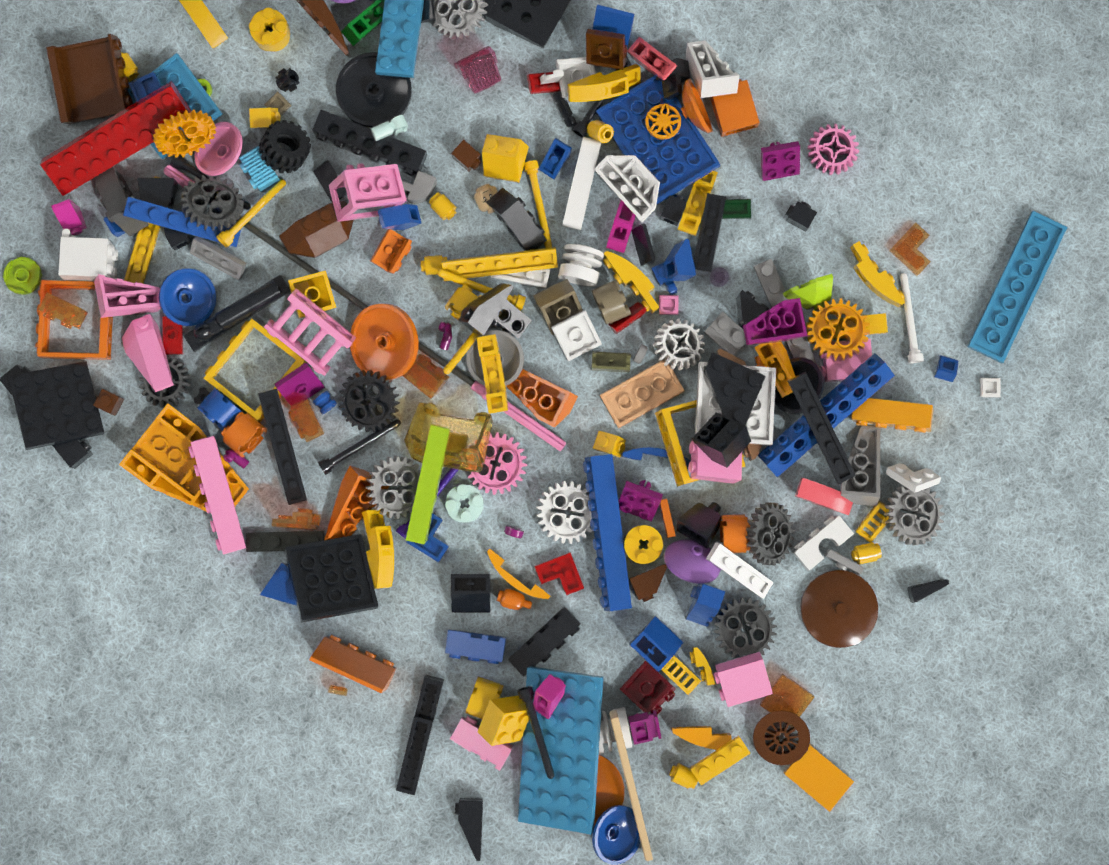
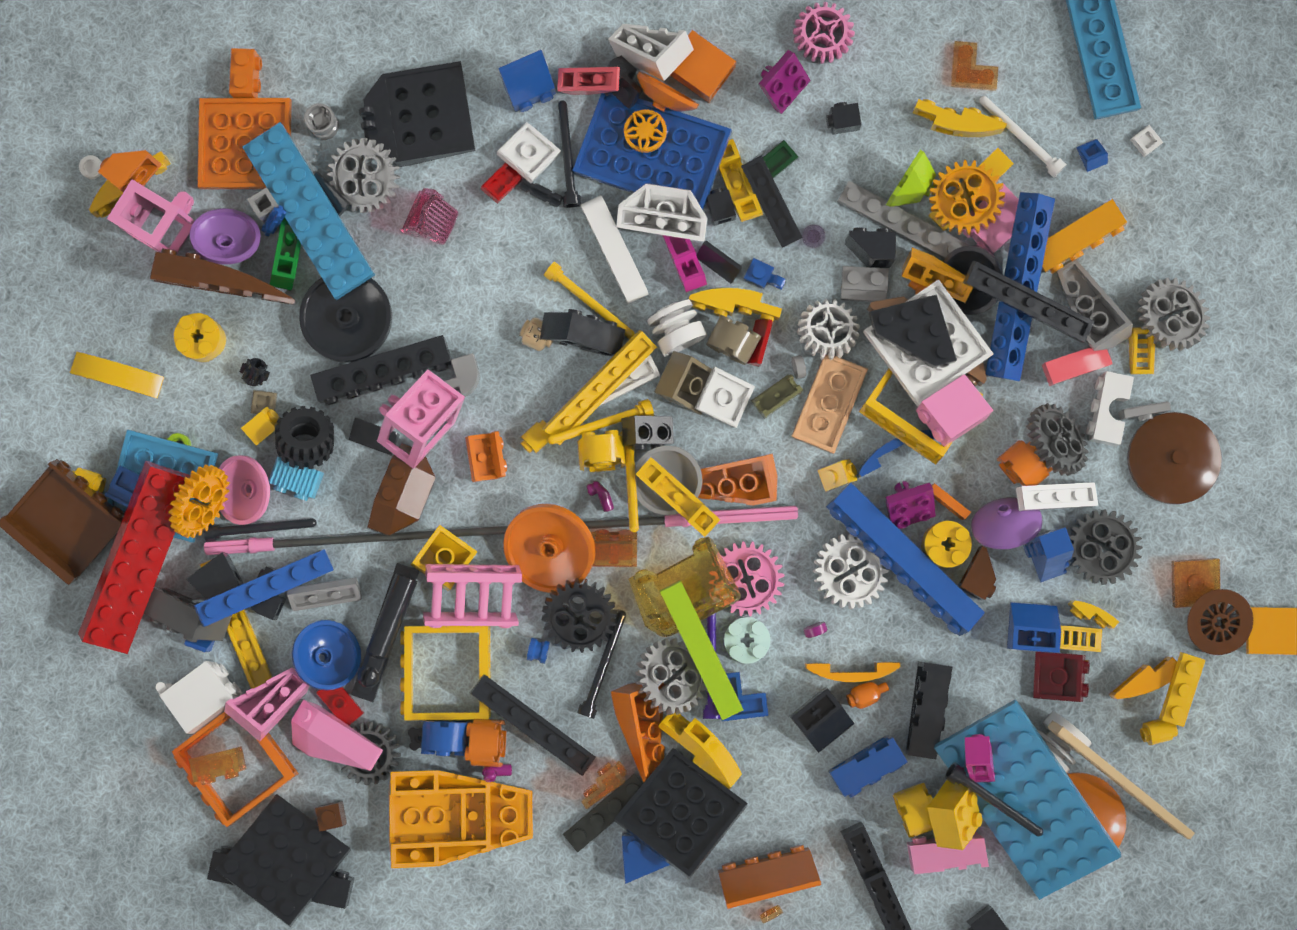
camera: 35 degrees left, 0 degrees up
(22, 275) = (148, 761): lime tile -> none
(69, 216) = (150, 668): dark pink slope -> none
(201, 193) = (255, 549): dark grey gear -> none
(218, 494) = (509, 820): bright pink brick -> none
(226, 237) = (318, 568): yellow piece -> none
(299, 384) = (501, 653): magenta plate -> none
(307, 420) = (535, 680): clear orange brick -> none
(397, 125) = (389, 343): light aqua bar -> none
(399, 217) = (468, 418): blue slope -> none
(442, 206) = (500, 375): yellow brick -> none
(466, 156) = (485, 309): reddish brown brick -> none
(483, 310) = (621, 445): slope -> none
(504, 157) = (521, 283): yellow slope -> none
(555, 77) = (510, 168): white tile -> none
(555, 158) = (571, 246): blue slope -> none
(563, 568) = (888, 627): red plate -> none
(600, 131) = (592, 186): yellow brick -> none
(604, 86) = (562, 142): yellow slope -> none
(606, 49) = (537, 104): reddish brown plate -> none
(616, 835) = (1142, 838): blue dish -> none
(644, 727) = (1086, 714): magenta plate -> none
(668, 304) = (787, 299): bright pink tile -> none
(679, 262) = (767, 251): blue slope -> none
(700, 523) = (984, 481): black torso -> none
(722, 439) = (946, 386): black slope -> none
(742, 679) = (1141, 596): bright pink brick -> none
(777, 324) = (909, 236): magenta wedge -> none
(866, 553) = (1158, 386): yellow brick -> none
(912, 480) = (1150, 283): white plate -> none
(923, 590) = (1237, 380): black slope -> none

